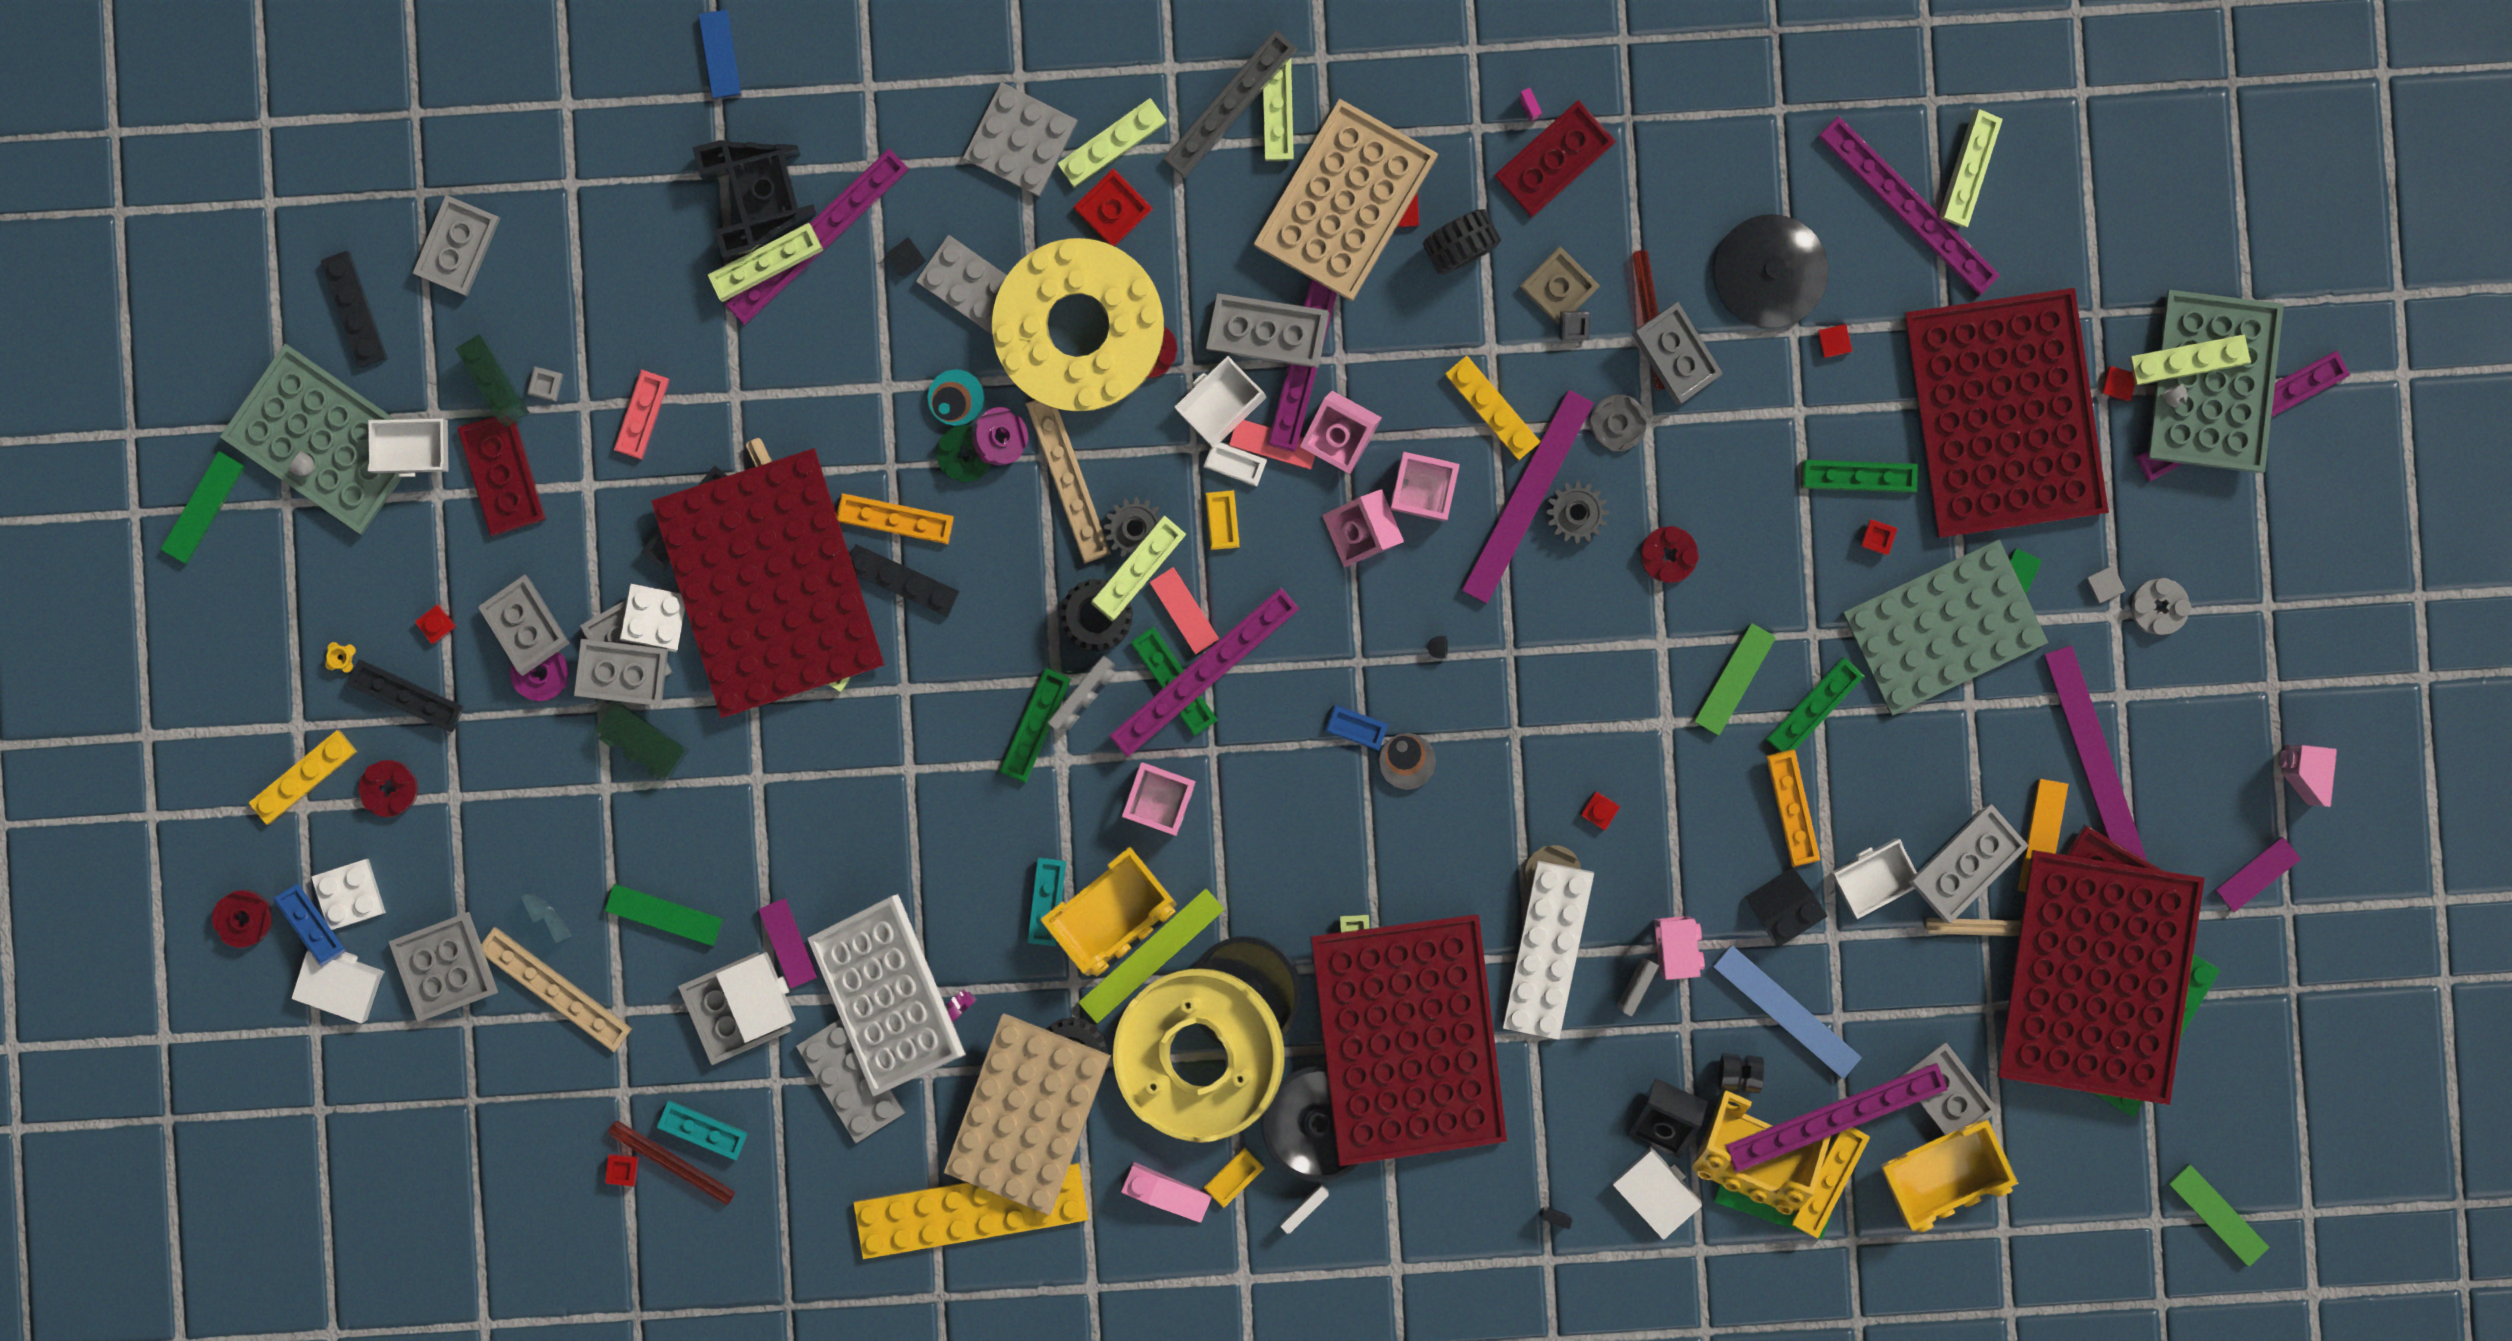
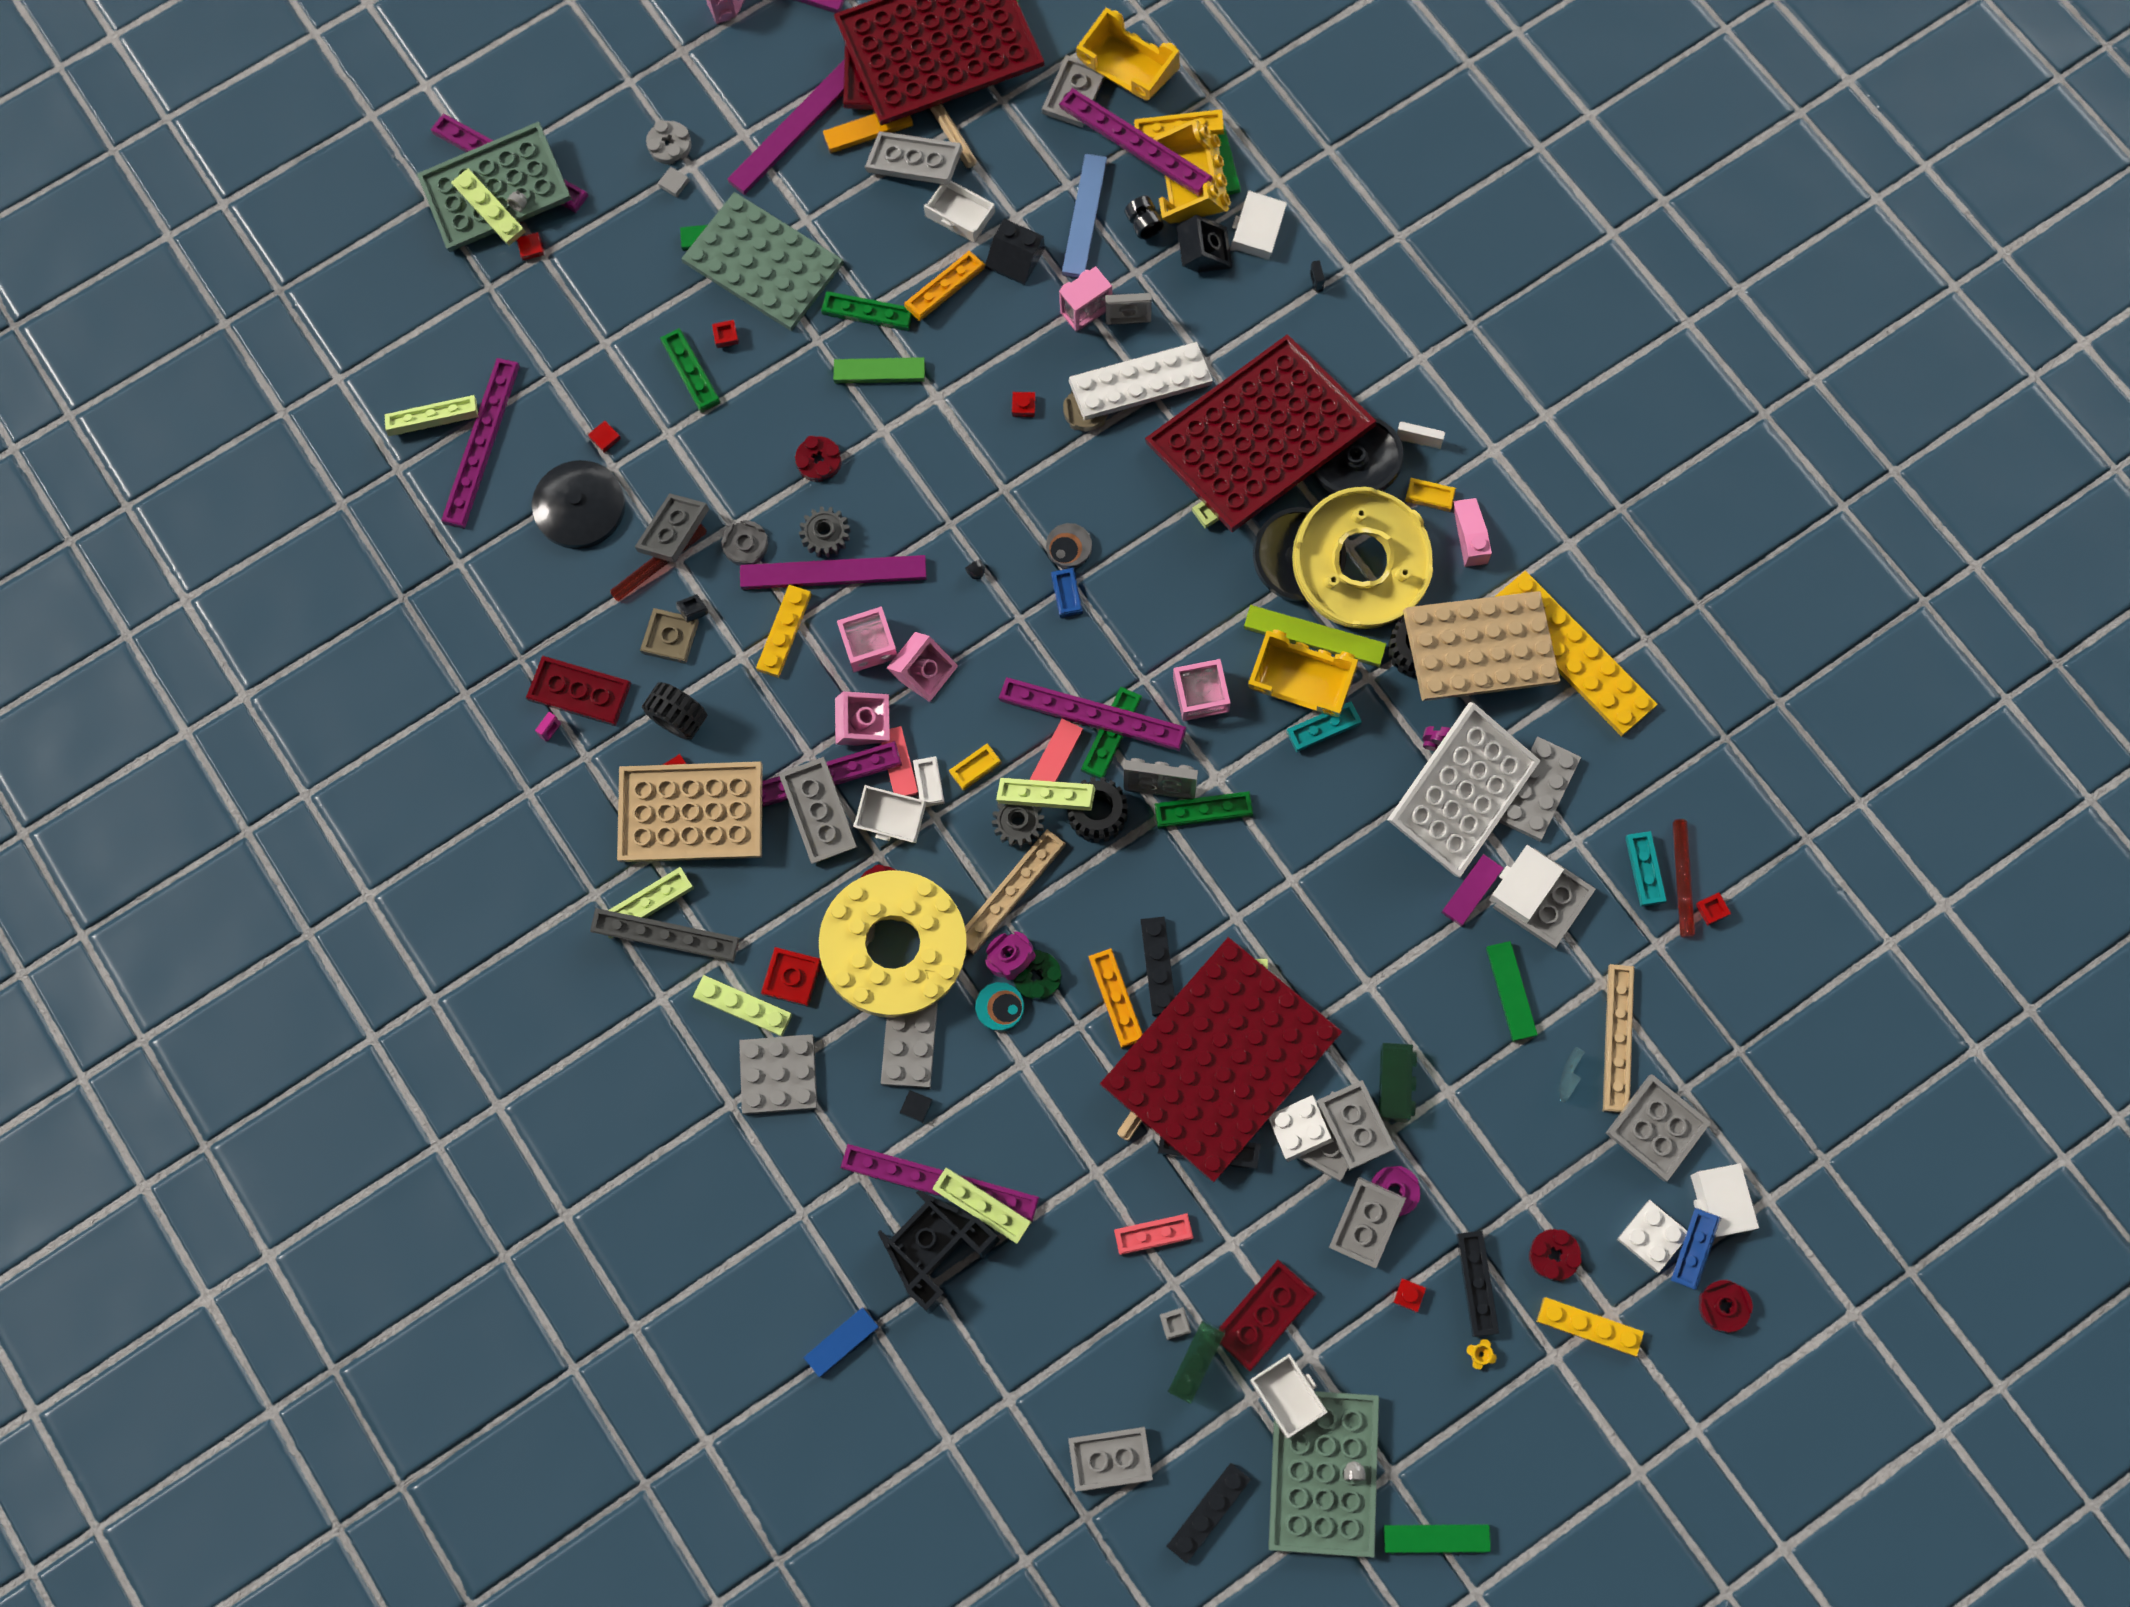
camera: 120 degrees left, 15 degrees down
(2006, 412) = (591, 303): dark red plate -> none

